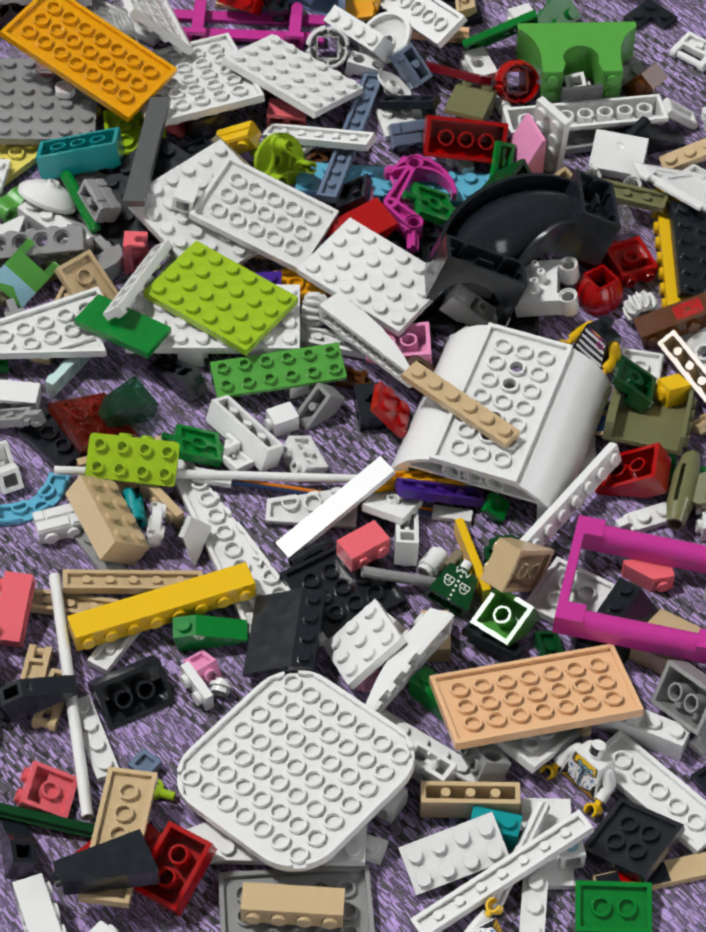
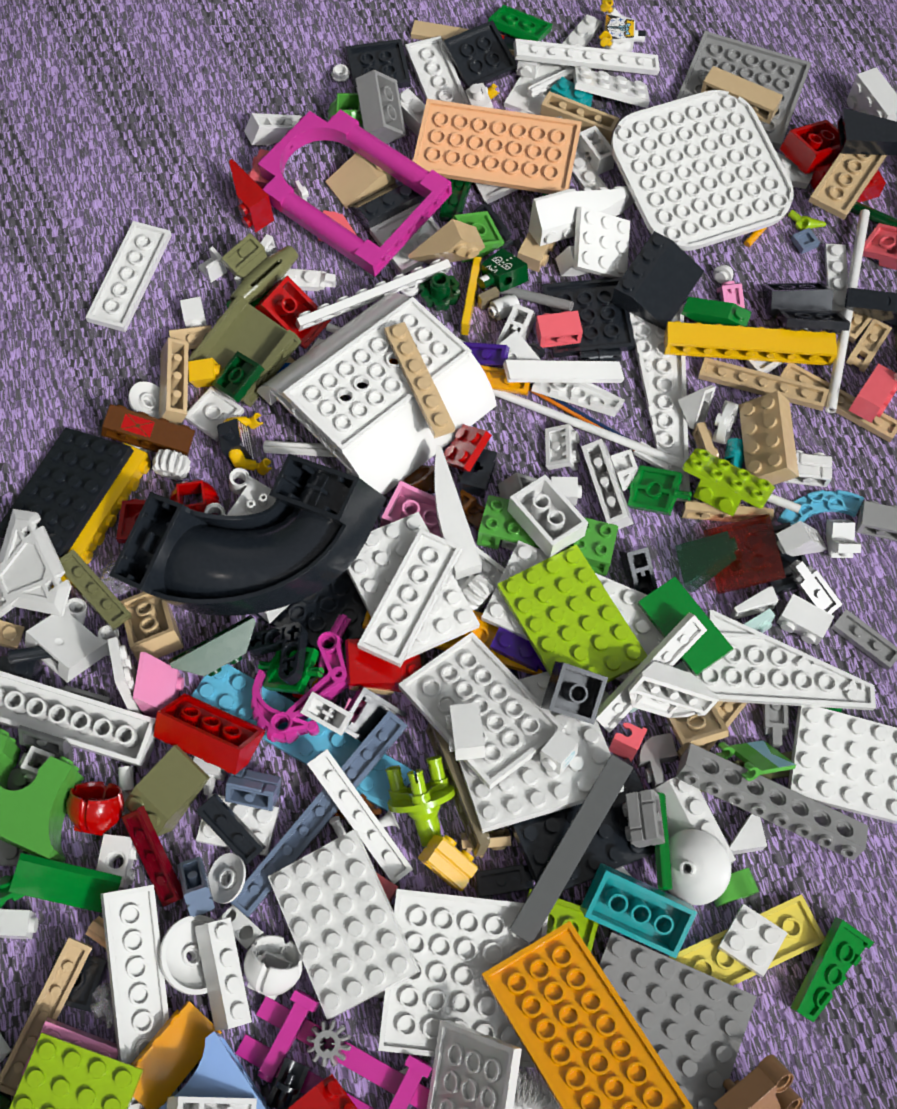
camera: 155 degrees left, 15 degrees up
(42, 441) = (800, 540): none -> white slope
(69, 389) = (756, 604): none -> white slope
(104, 647) = (813, 320): none -> black plate
(117, 265) = (670, 692): none -> white wedge
(192, 228) = (574, 692): none -> brick
(200, 692) = (741, 275): white plate -> none
(263, 26) = (331, 1053): none -> light grey gear
(264, 179) = (466, 731): none -> white brick
(282, 356) = (547, 516): none -> white brick
(363, 252) = (409, 598): none -> white plate
(380, 175) = (326, 713): none -> white slope
(431, 193) = (262, 644): none -> black beam
(499, 154) = (187, 688): green tile -> none

